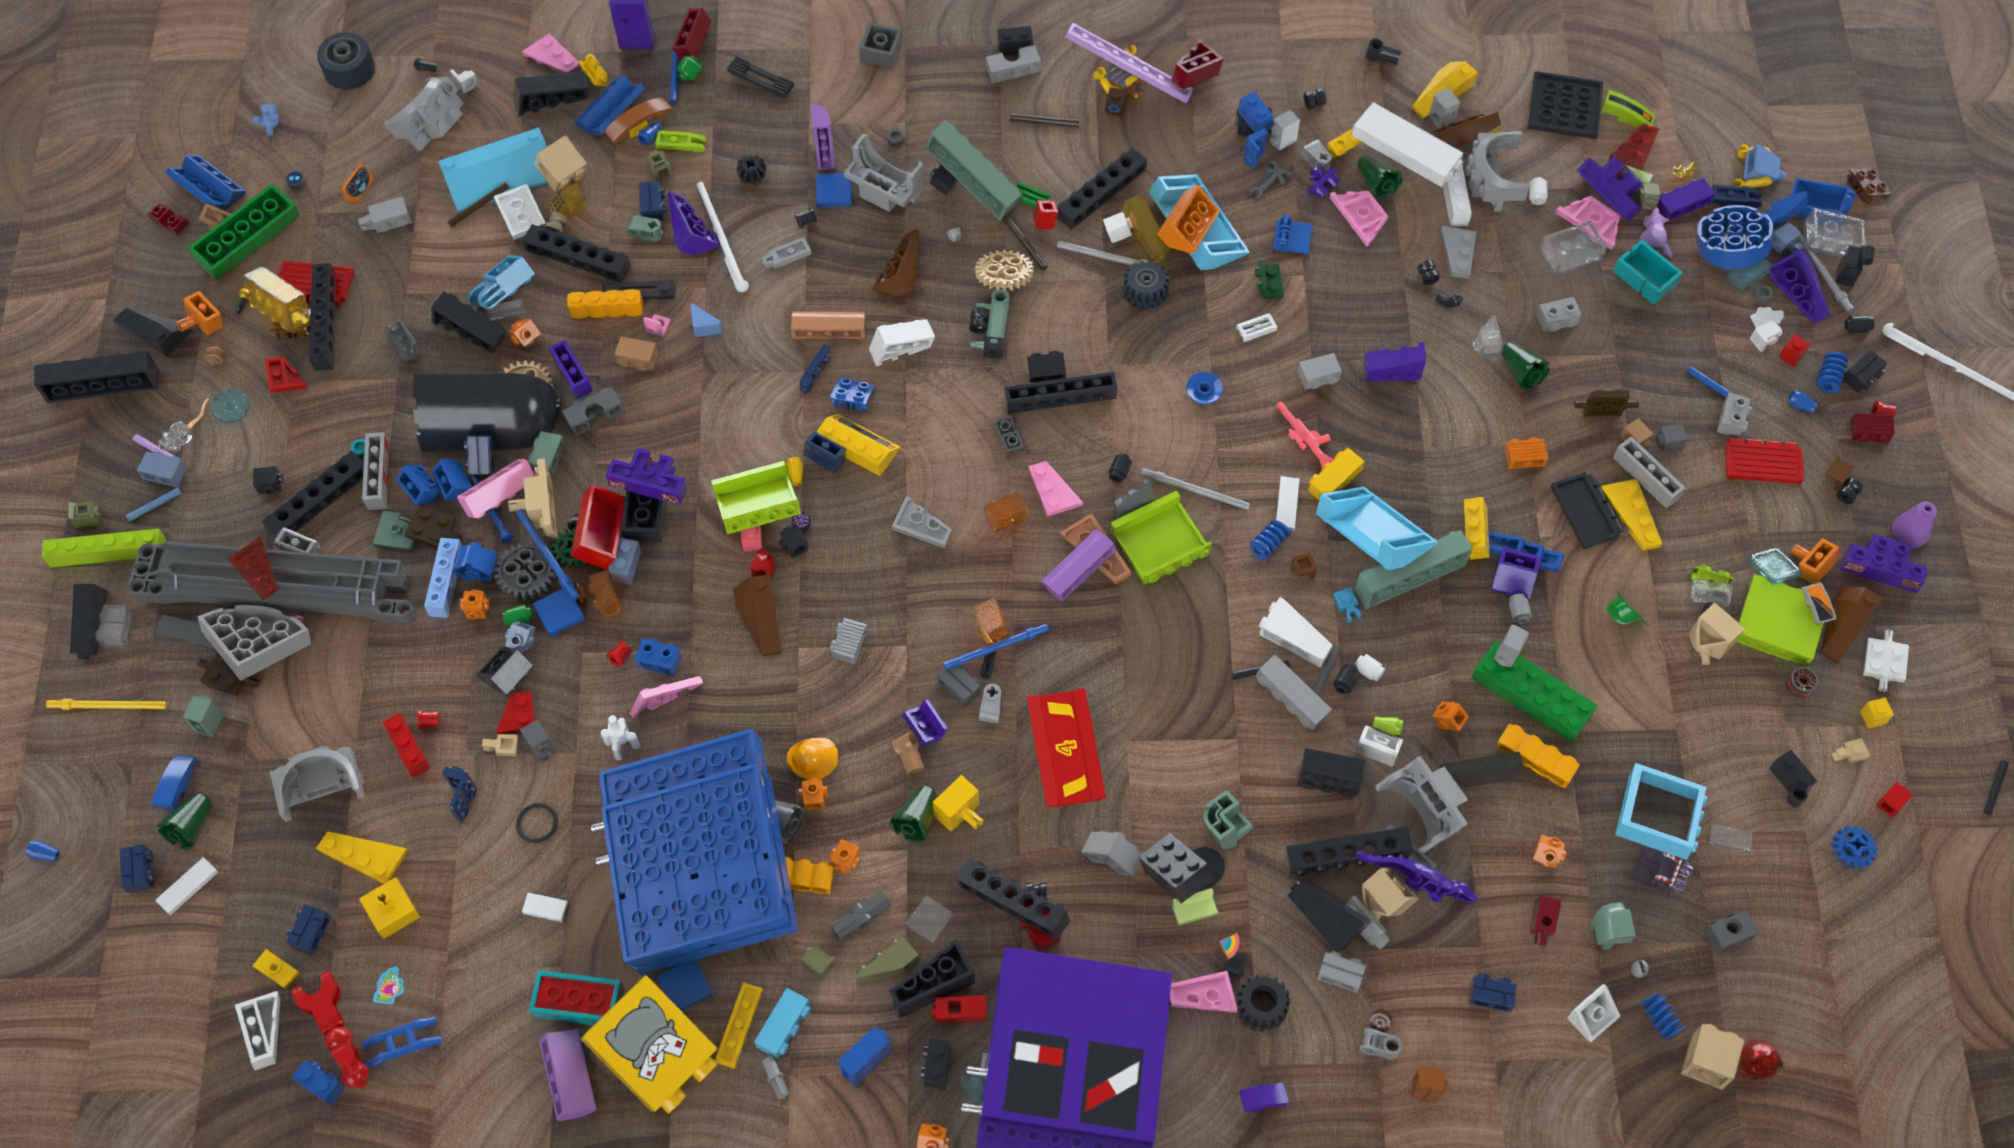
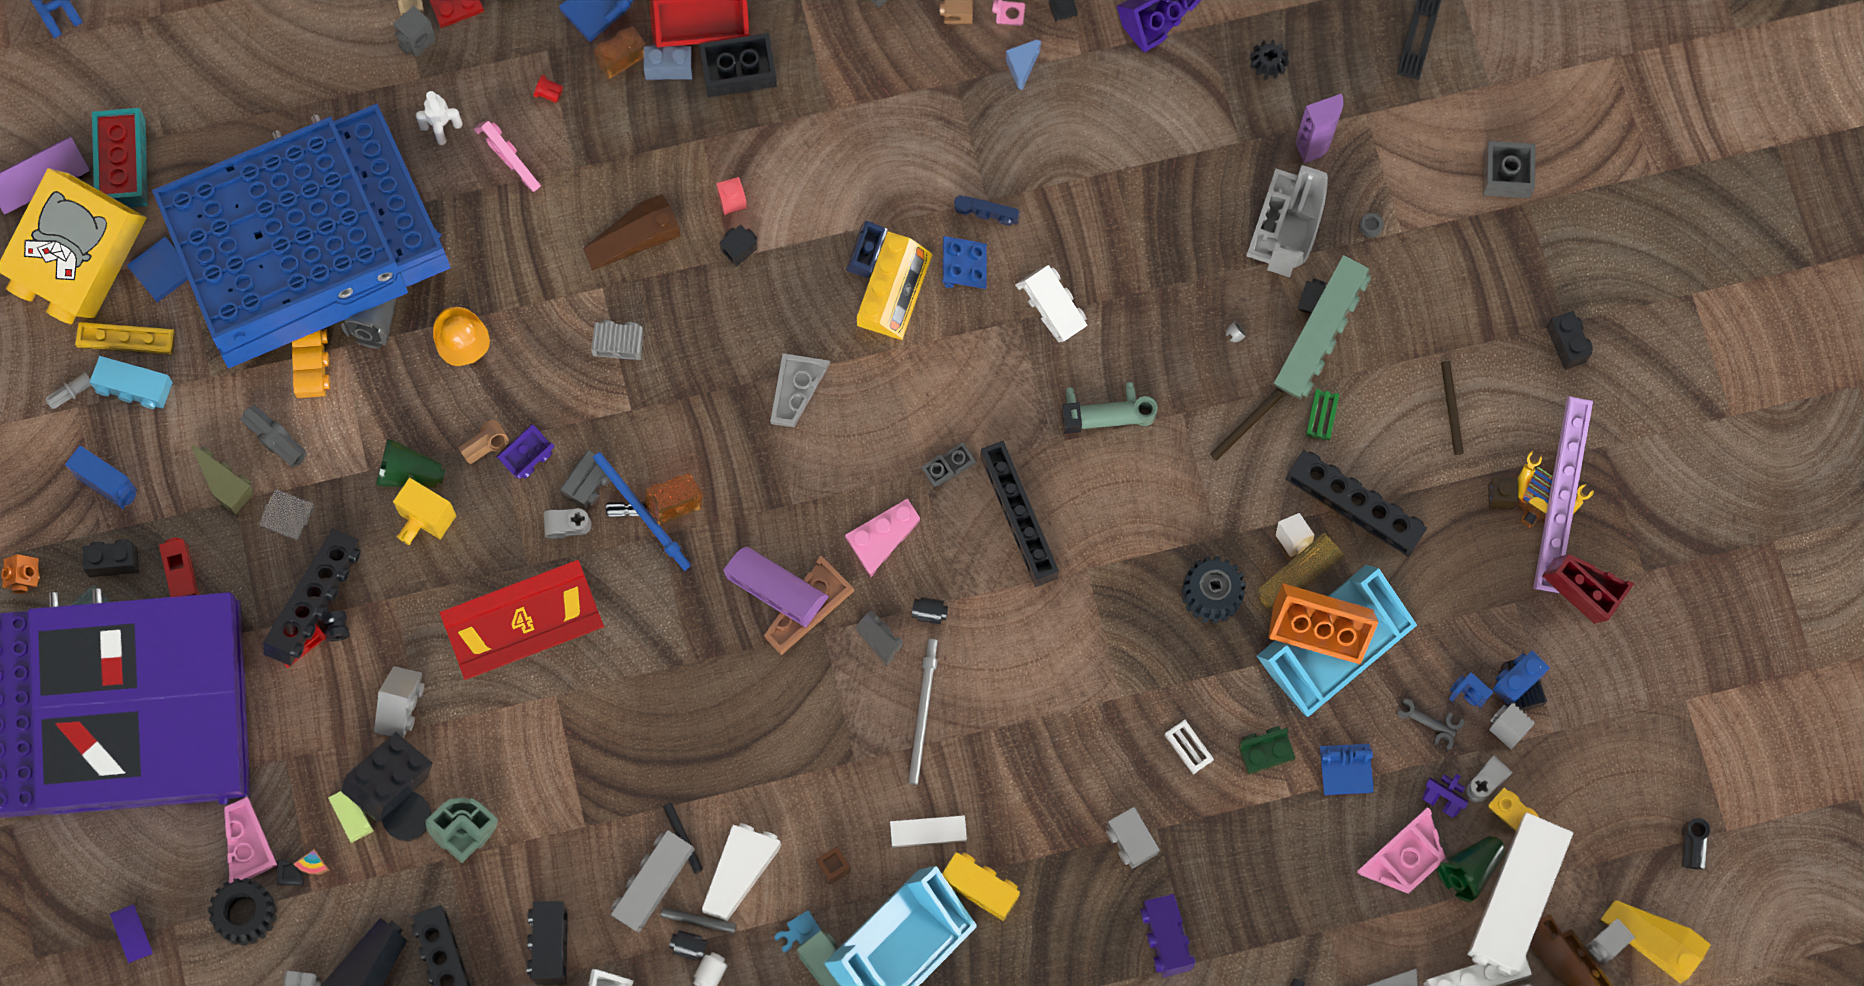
camera: 75 degrees right, 10 degrees up
(536, 840) = (322, 42): black piece -> none
(545, 907) = (226, 98): white tile -> none
(582, 591) = (618, 24): reddish brown plate -> none
(648, 477) = (769, 52): dark purple piece -> none
(658, 657) = (552, 133): blue brick -> none
(740, 284) = (1089, 93): white bar -> none
(755, 497) = (780, 186): lime panel -> none
(762, 564) = (701, 218): red brick -> none
(786, 253) = (1151, 135): light grey hinge -> none
(795, 470) = (836, 222): yellow cone -> none
(802, 520) = (770, 248): black tile -> none
(805, 217) = (1211, 144): black bush -> none
(813, 794) = (410, 347): orange brick -> none
(818, 961) = (209, 402): olive window -> none
(828, 325) = (1059, 210): nougat brick -> none
(833, 190) = (1260, 164): blue tile -> none
(845, 857) = (337, 401): orange brick -> none
(901, 268) = (1155, 279): reddish brown wedge -> none
(936, 979) = (211, 539): black wedge -> none
(979, 318) = (1106, 391): black wheel -> none
(1001, 69) = (1537, 365): light grey arch -> none
(1004, 270) = (1189, 405): tan gear -> none
(1005, 511) = (832, 483): clear orange brick -> none
(1045, 214) = (1289, 438): red brick -> none
(1046, 366) = (1054, 488): black brick -> none
(1096, 253) = (1249, 577): light grey bar -> none
(1159, 538) = (839, 681): lime panel -> none
(1204, 381) = (1073, 682): blue dish -> none
(1269, 539) = (865, 815): blue piece -> none
(1302, 434) = (1037, 833): coral piece -> none
(1314, 98) = (1585, 760): black wheel -> none
(1428, 272) = (1331, 961): black wheel -> none

